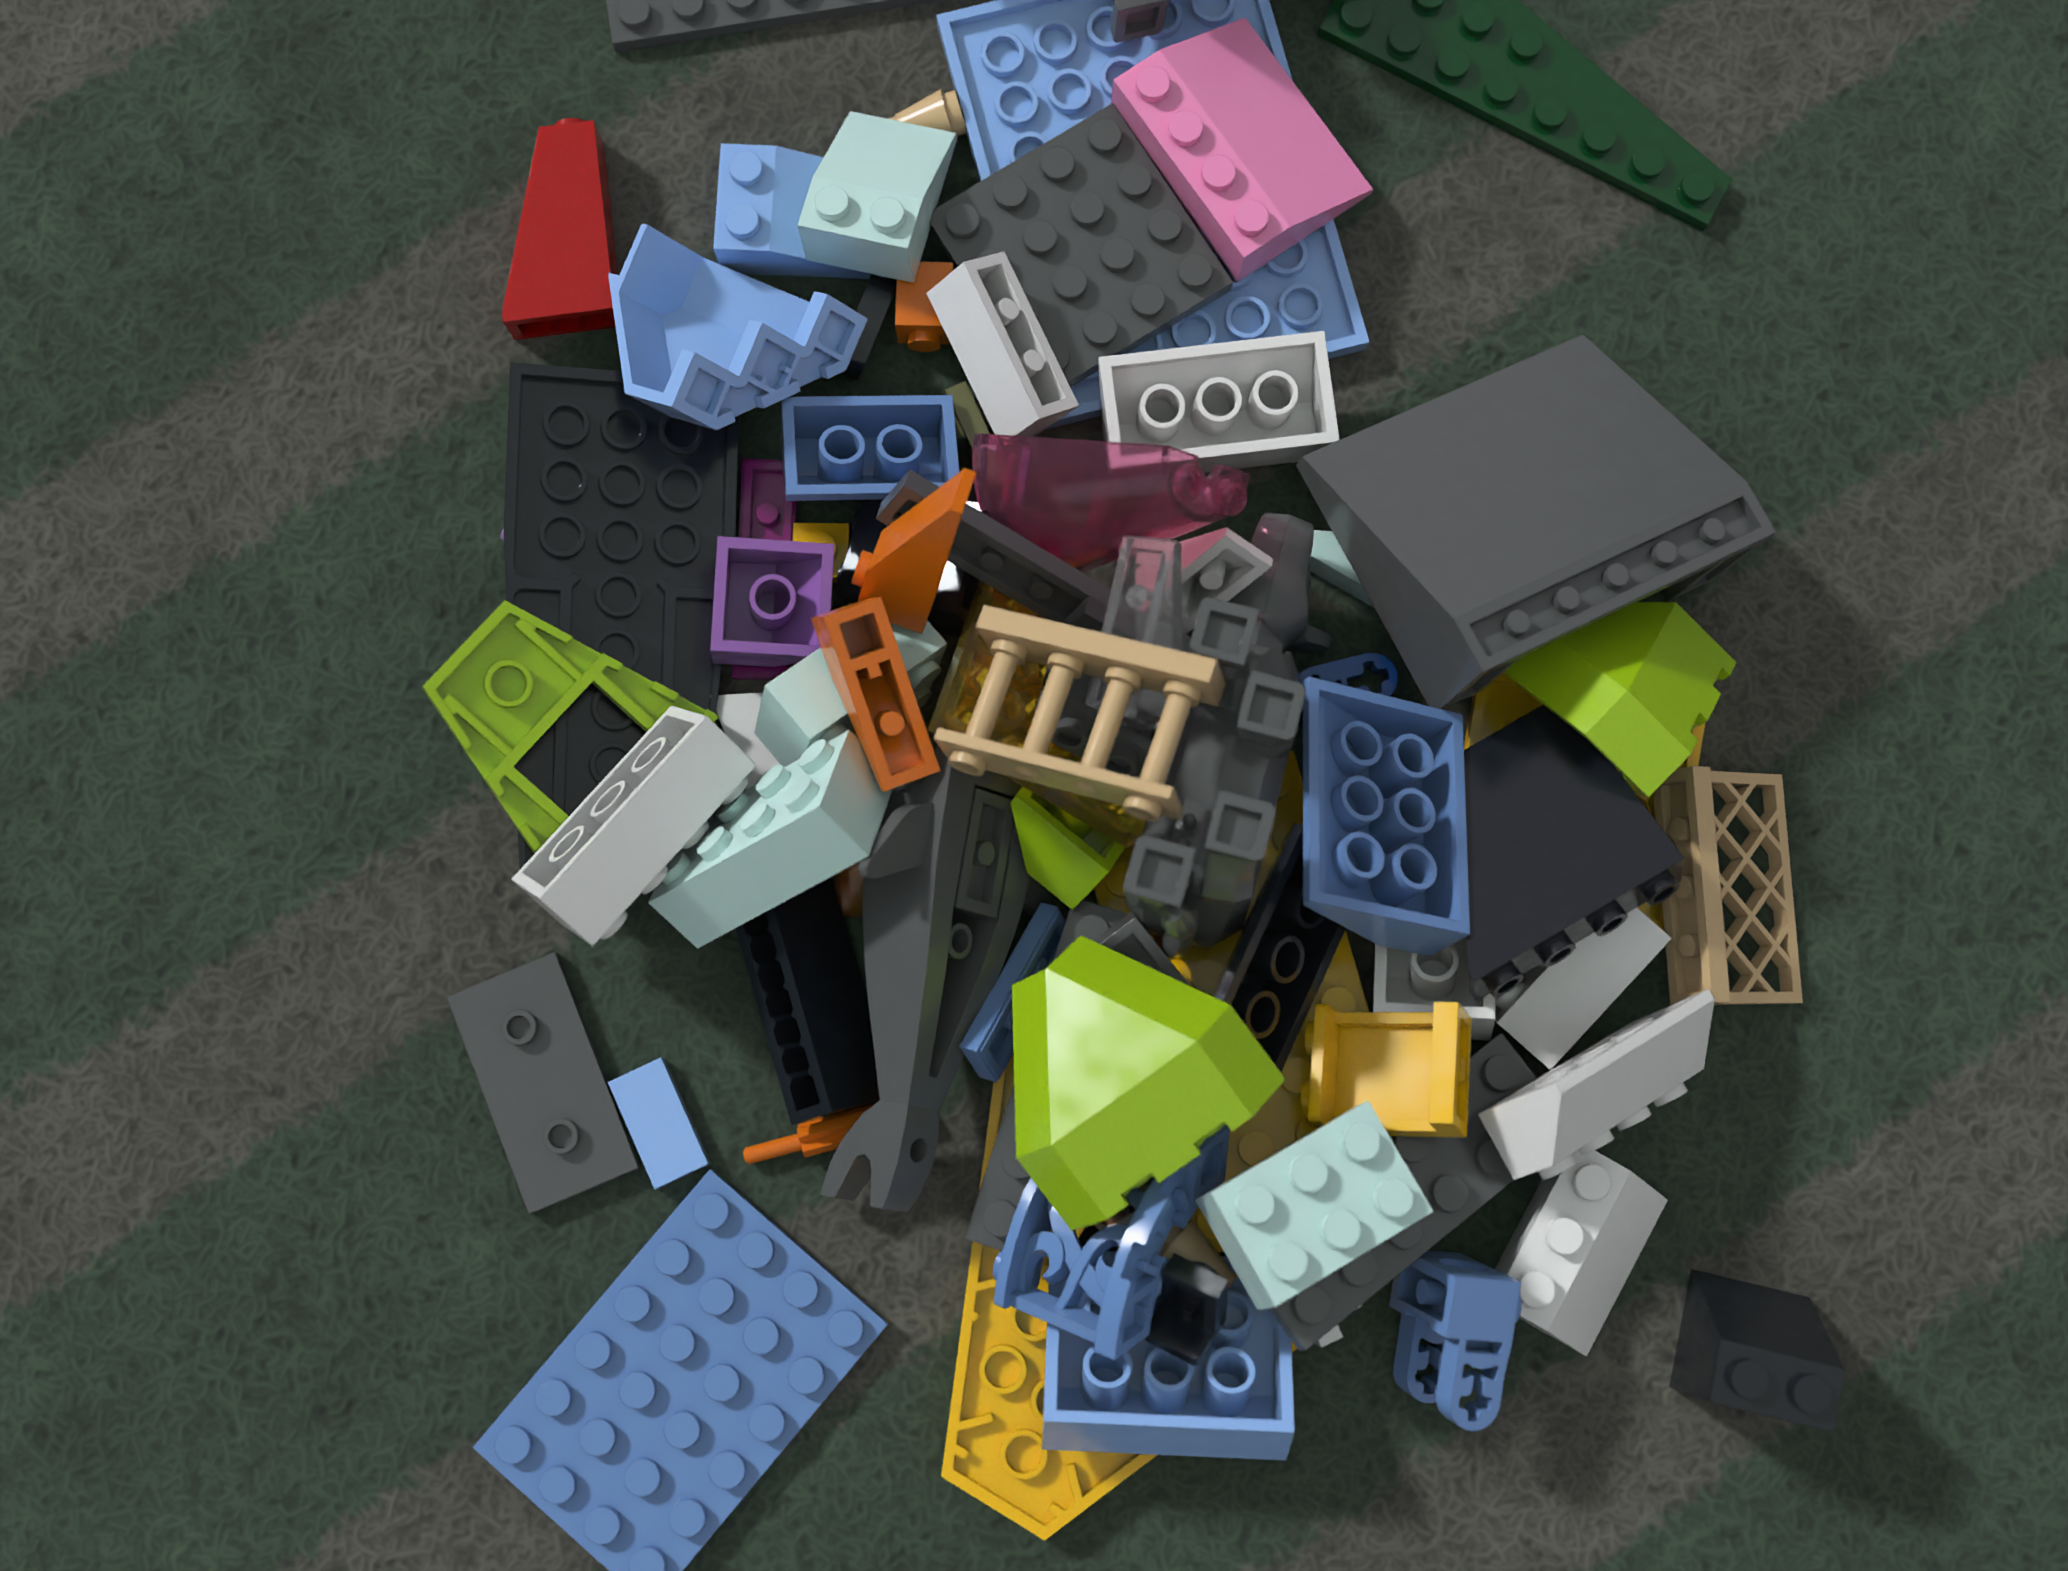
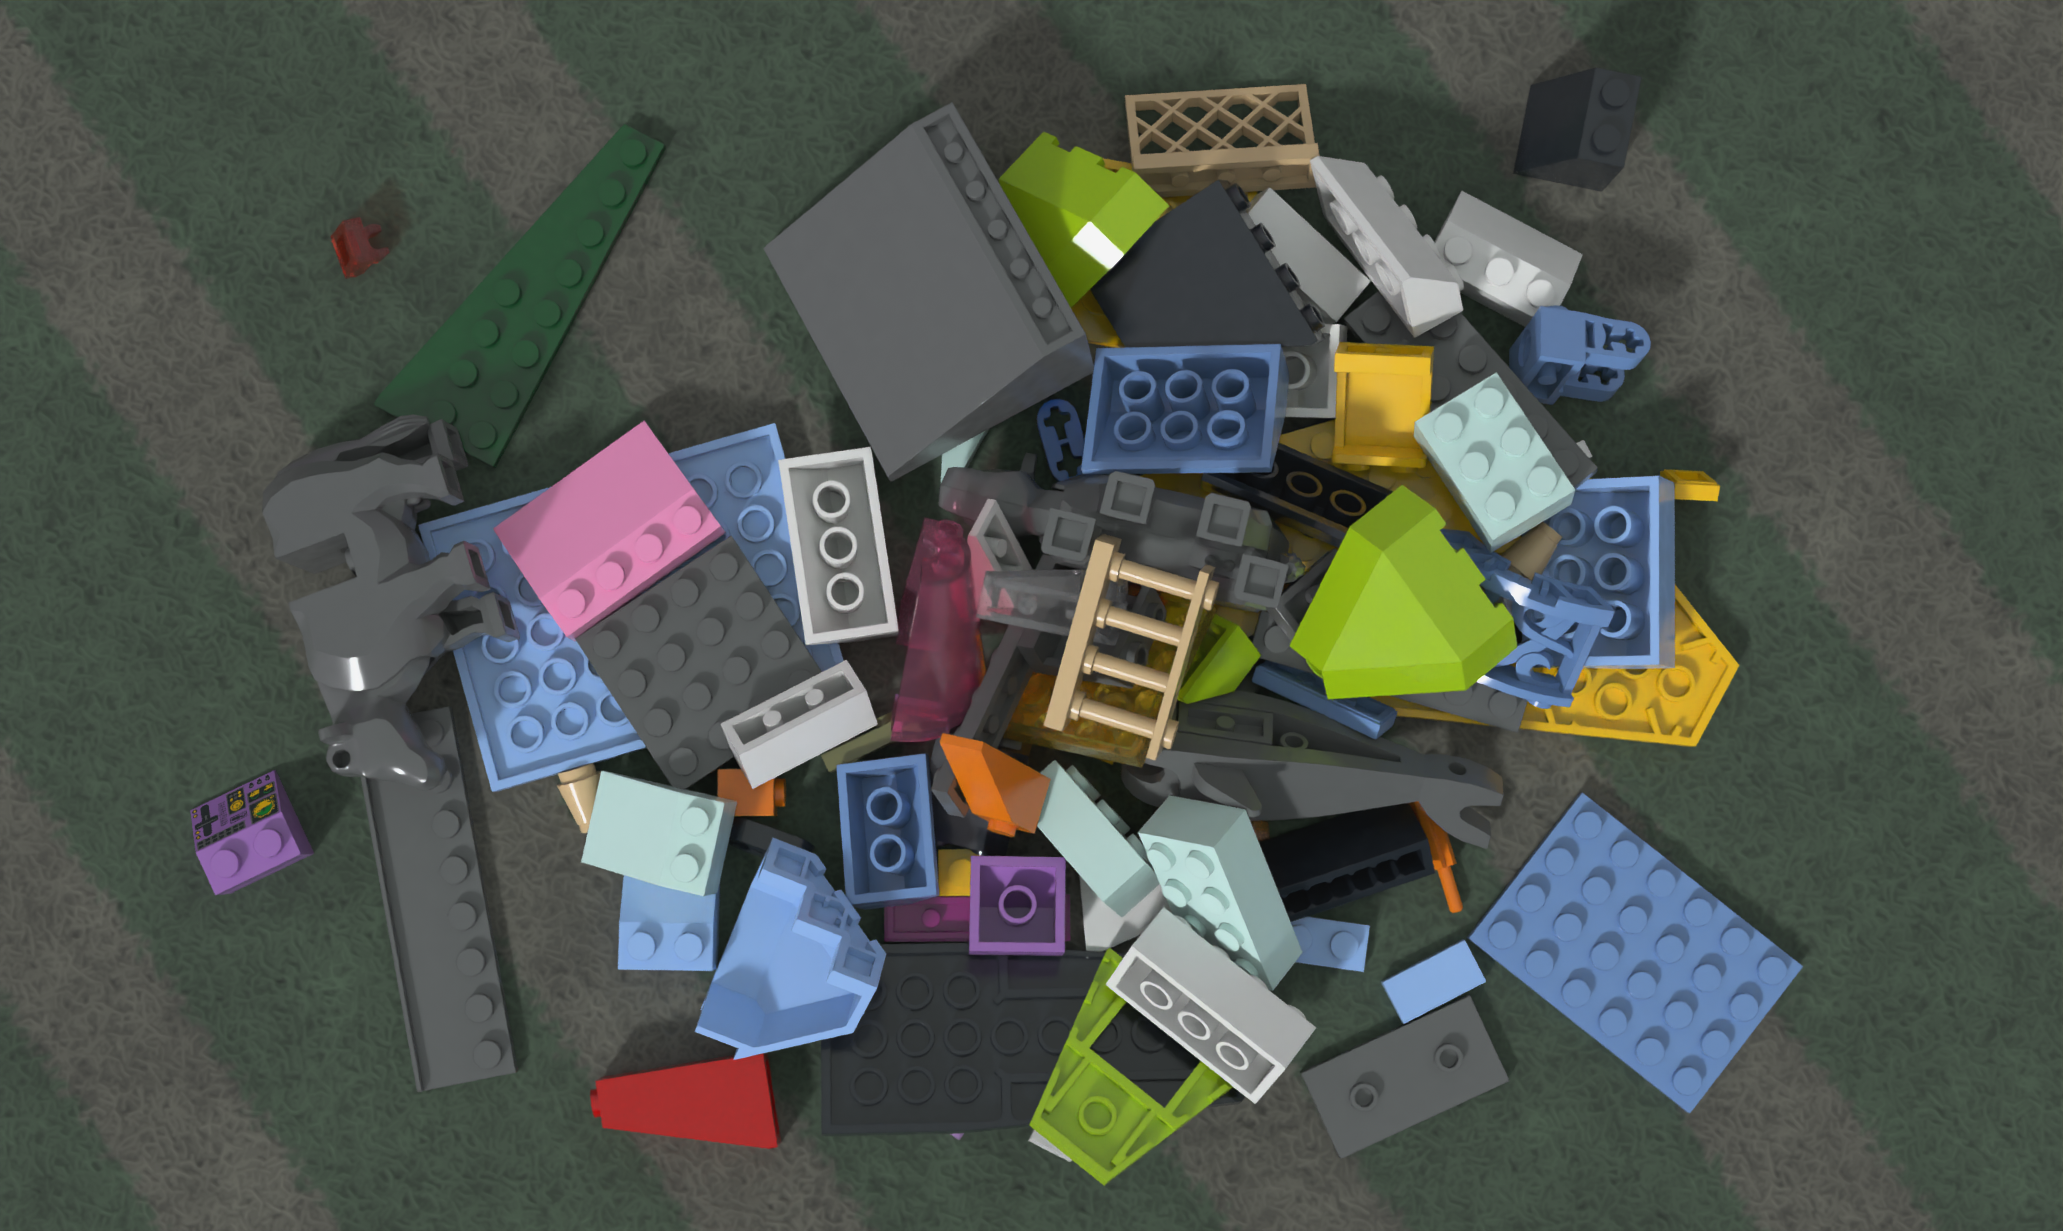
camera: 95 degrees left, 5 degrees up
(713, 991) = (1332, 943): none -> light blue hinge
(876, 691) = (1106, 811): orange slope -> none
(1190, 1309) = (1571, 556): black bracket -> none
(1282, 1486) = (1692, 485): none -> yellow tile

